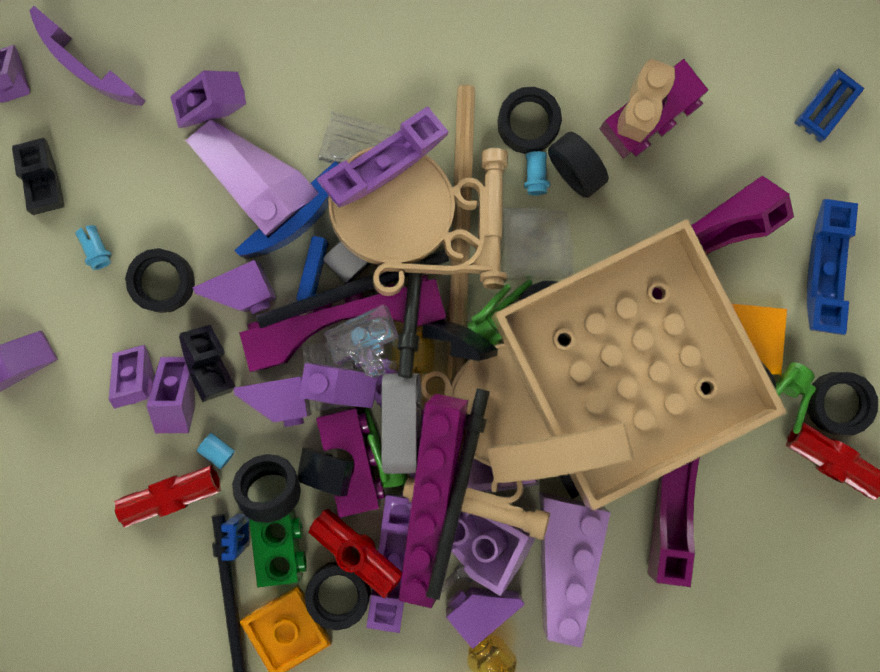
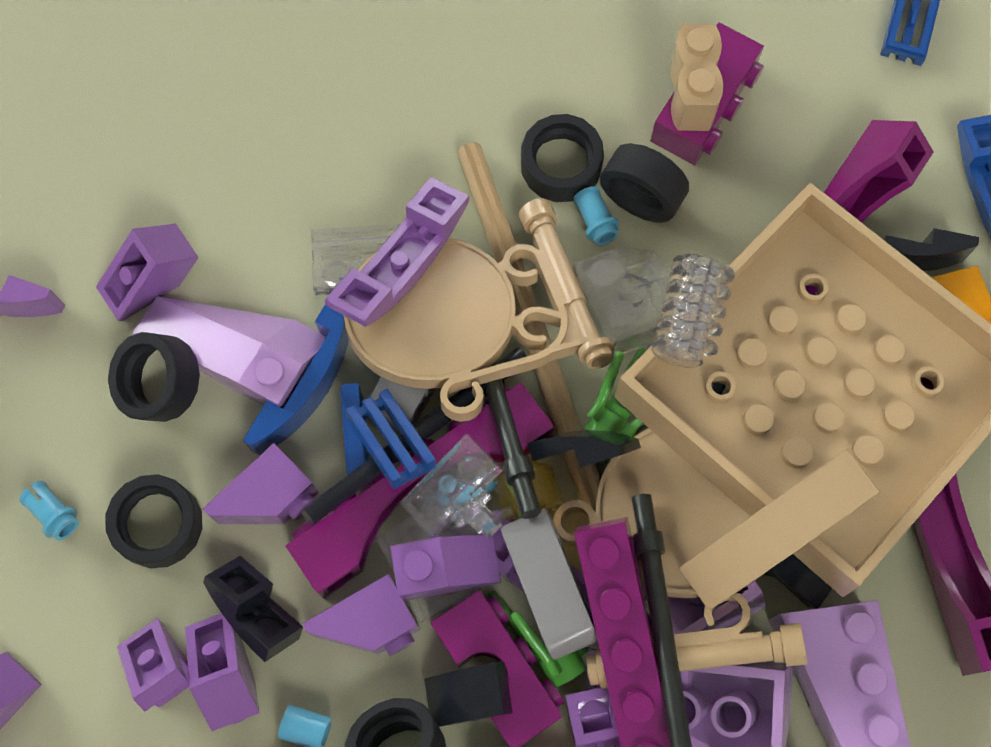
camera: 15 degrees left, 15 degrees down
(169, 181) = (127, 370): none -> black tyre
(326, 261) = (373, 409): none -> blue tile
(561, 286) = (690, 310): none -> clear piece
(762, 287) = (938, 249): none -> black slope

